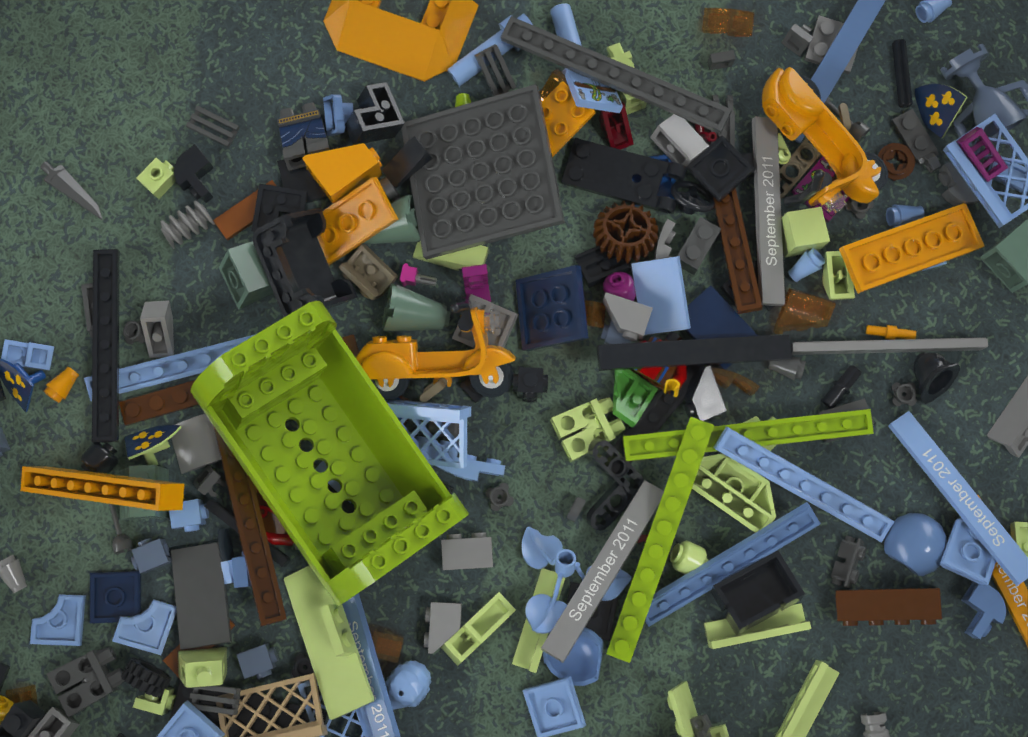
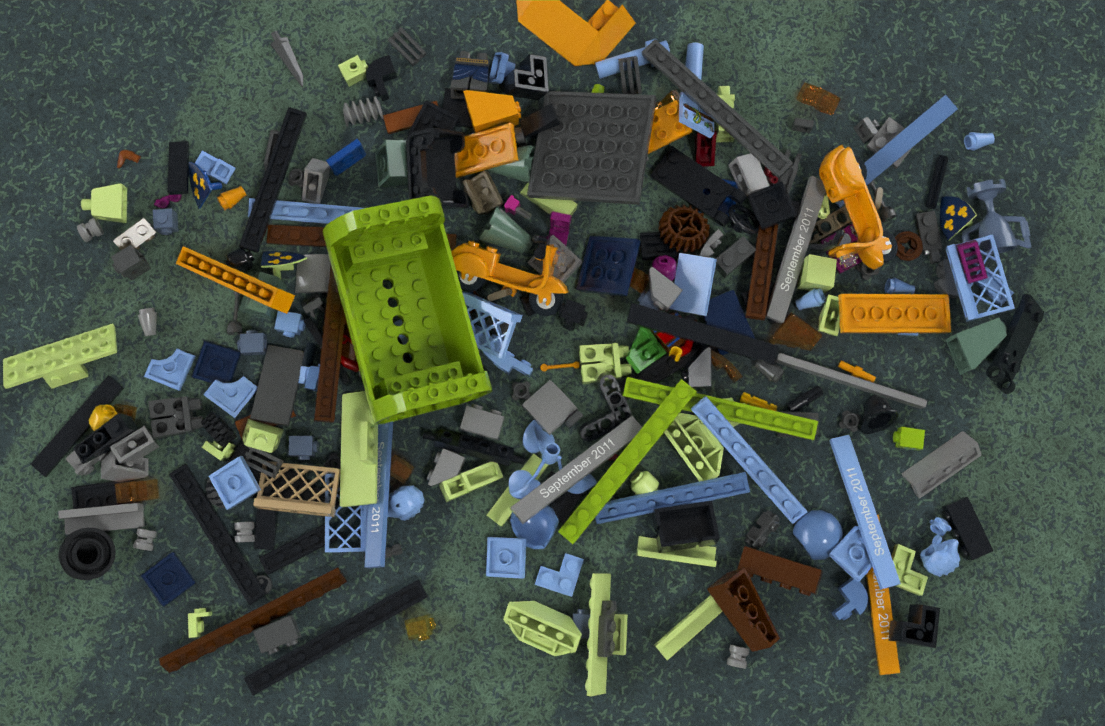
camera: 20 degrees right, 0 degrees up
(186, 287) = (346, 157): none -> blue tile
(467, 586) = (474, 447): none -> black plate
(517, 458) = (544, 367): none -> light orange hinge
(541, 505) = (549, 407): none -> light grey slope
(633, 710) = (564, 580): none -> light blue plate
(787, 411) = (757, 402): none -> yellow axle
(863, 667) = (744, 609): none -> reddish brown wedge
(981, 390) = (909, 438): none -> lime brick

